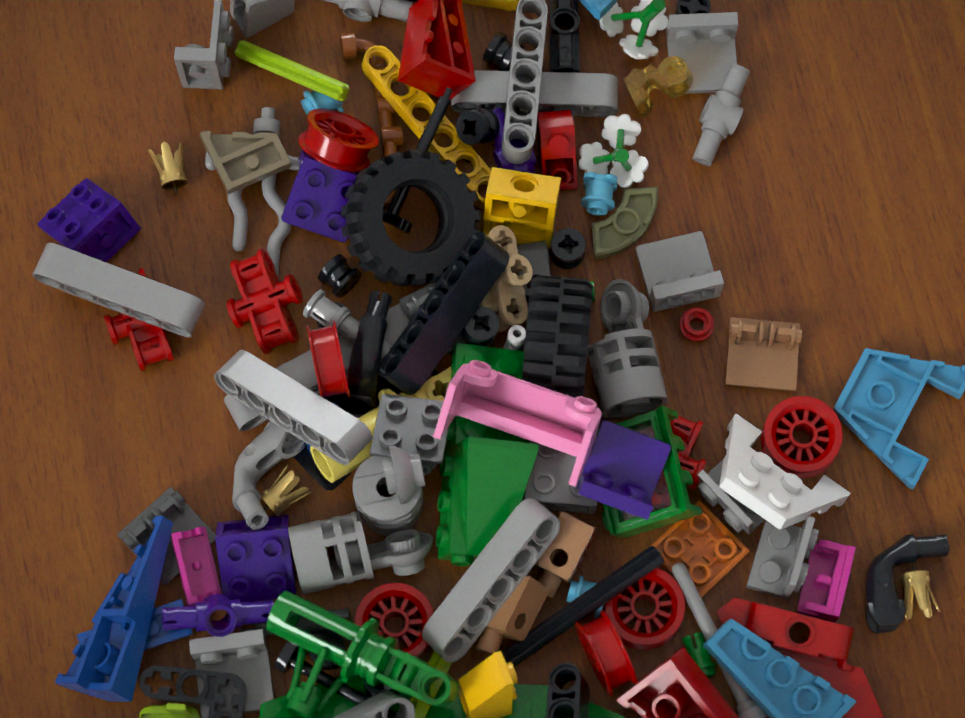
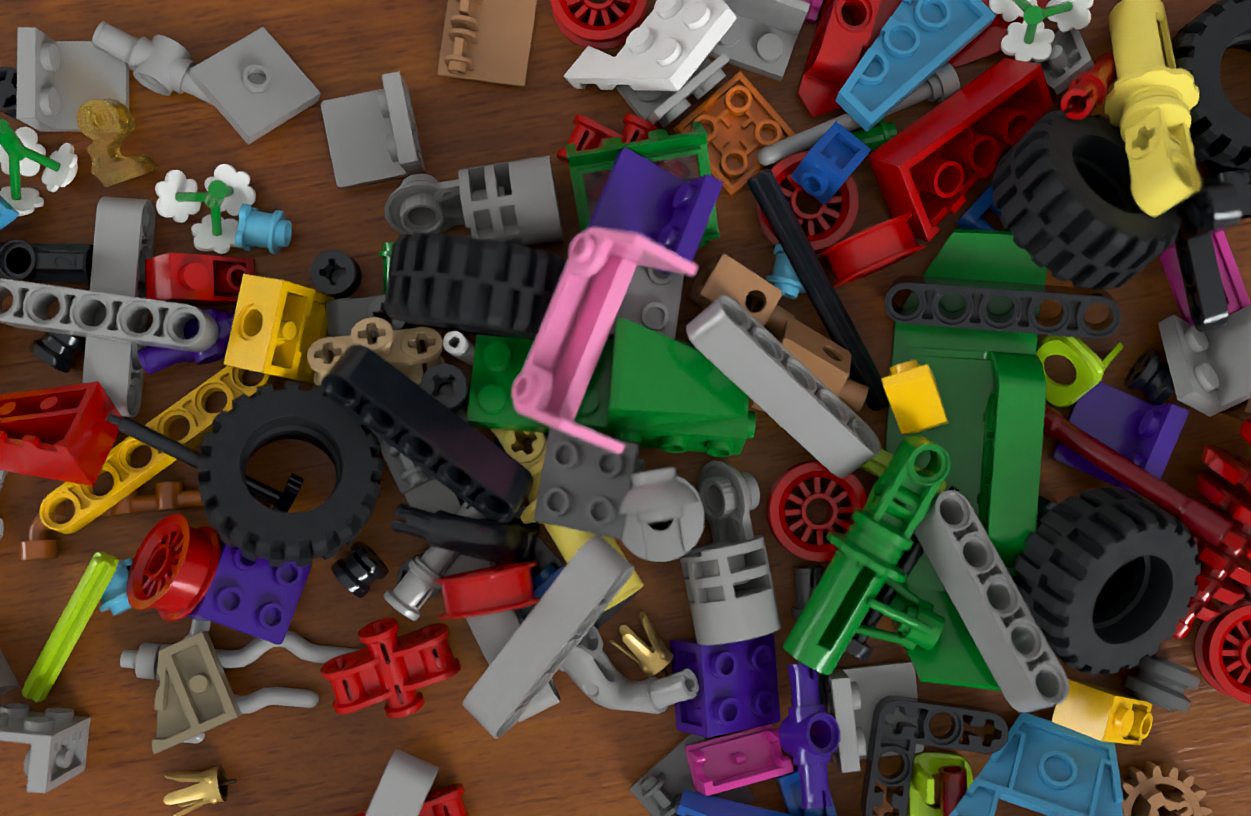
camera: 85 degrees left, 15 degrees up
(482, 132) = (168, 371): black wheel -> none
(626, 224) = (305, 197): olive tile -> none
(675, 616) = (830, 163): none -> blue bracket
(696, 314) = (442, 104): red plate -> none
(710, 182) = (255, 85): none -> light grey plate

